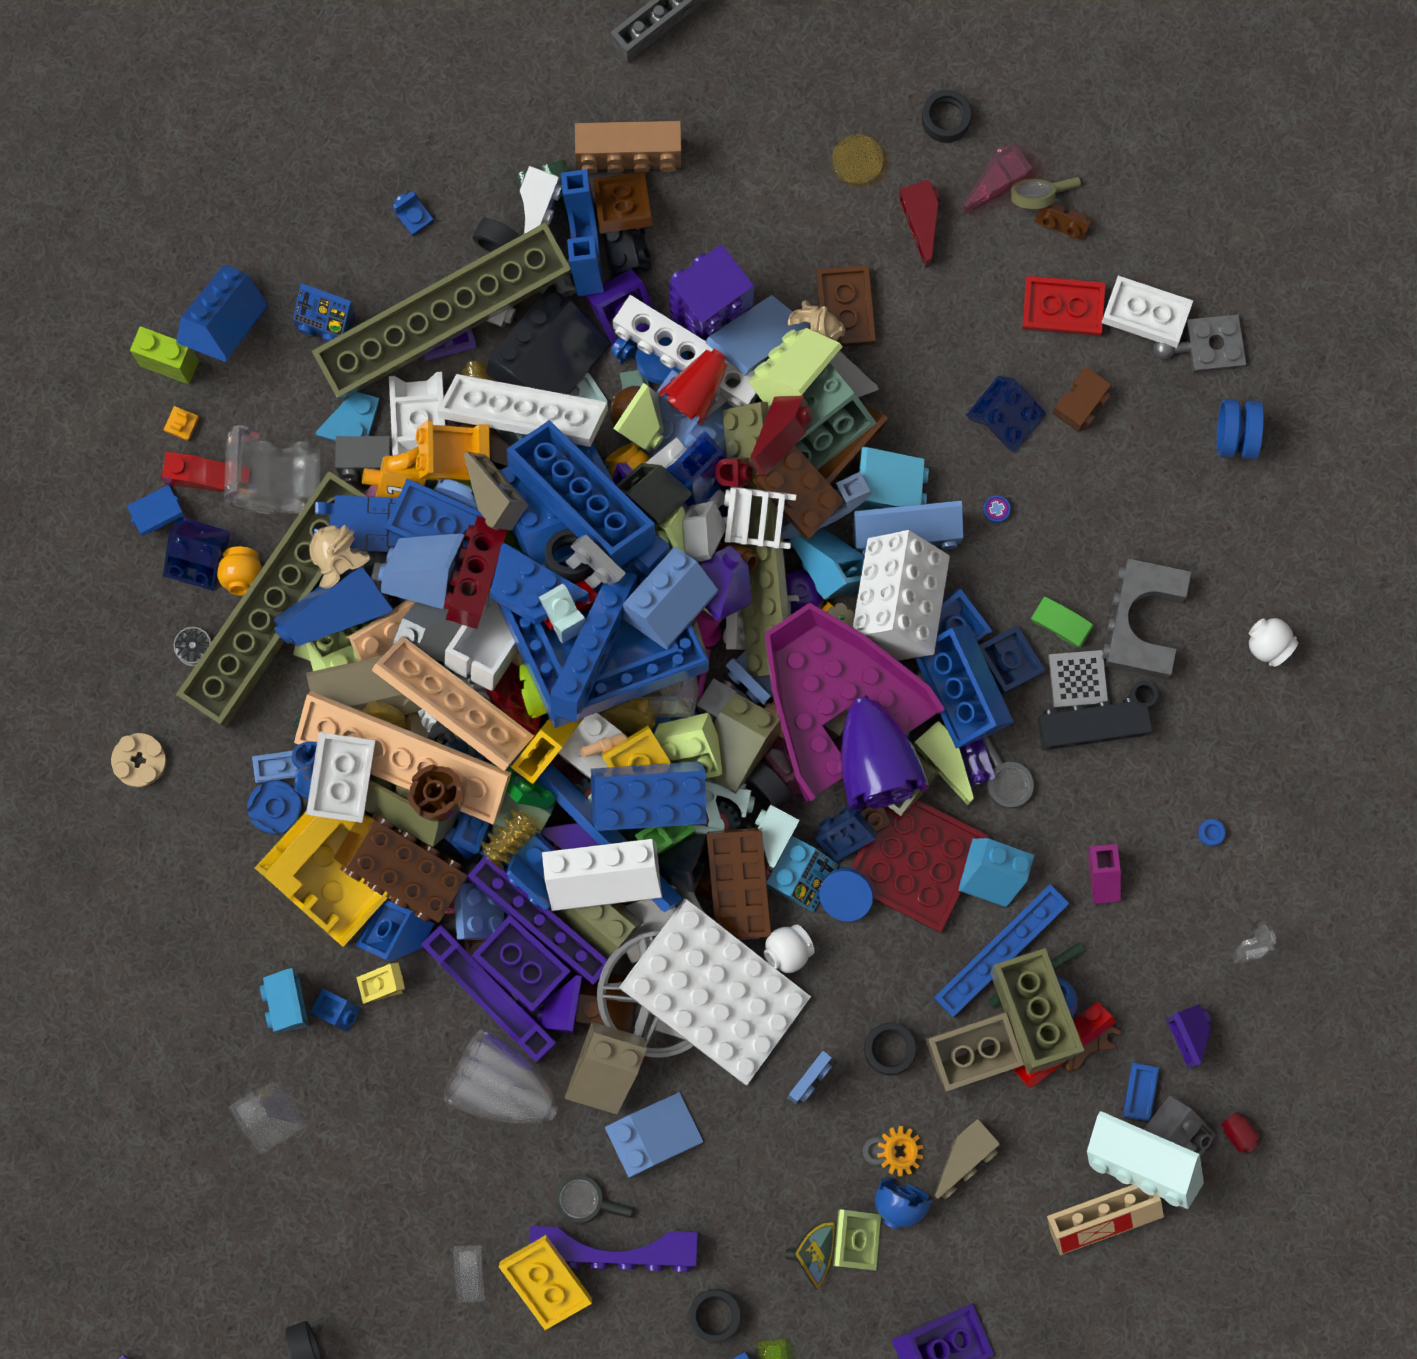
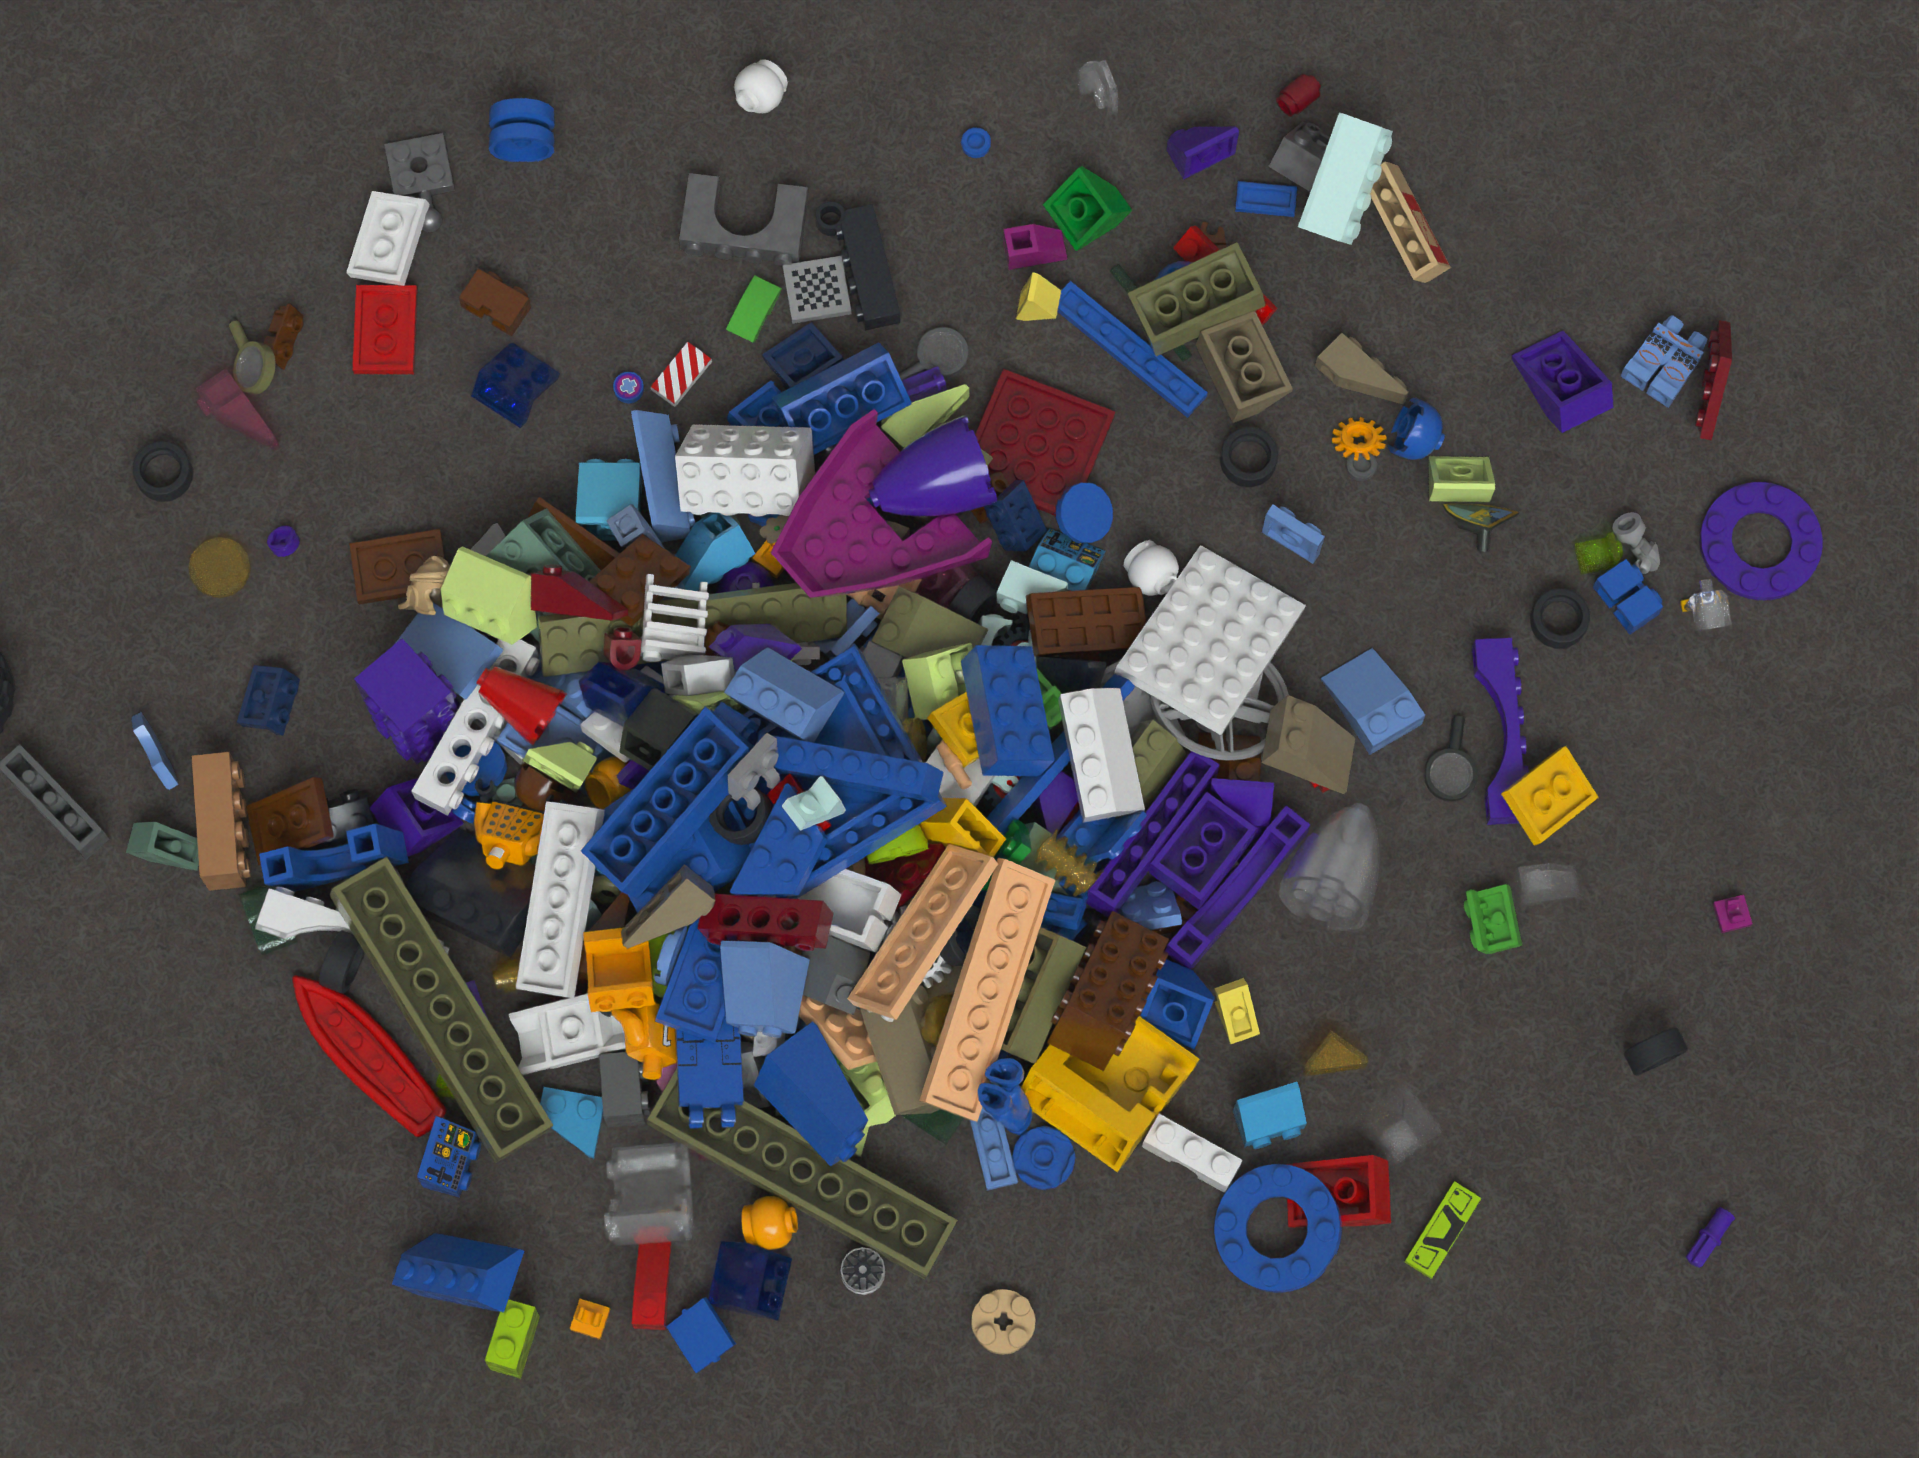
camera: 95 degrees left, 5 degrees down
(173, 1143) = (1442, 1230): none -> lime tile
(195, 1034) = (1309, 1260): none -> blue plate
(213, 1055) = (1356, 1184): none -> red slope
(259, 931) = (1202, 1157): none -> white arch
(333, 554) = (756, 1087): tan helmet -> none
(333, 1064) = (1335, 1056): none -> clear yellow slope
(335, 1010) = (1272, 1062): blue bracket -> none
(340, 777) = (1019, 1052): white plate -> none
(412, 213) = (312, 1071): blue bracket -> none
(419, 259) = (368, 1055): none -> red piece
(436, 793) = (1025, 948): reddish brown cylinder -> none
(441, 1219) = (1493, 919): none -> bright green bracket
(599, 377) = (506, 829): none -> light orange torso
(615, 99) = (163, 845): none -> sand green slope
(696, 100) = (154, 751): none -> medium blue tile
(735, 194) = (268, 699): none -> dark blue bracket
(876, 212) = (283, 541): none -> dark purple tile
(920, 208) = (286, 488): dark red slope -> none
(995, 871) = (1043, 357): dark azure slope -> none
(1005, 555) = (681, 374): none -> tile
(1050, 873) = (1038, 299): none -> light yellow slope
(1139, 925) = (1086, 207): none -> green slope

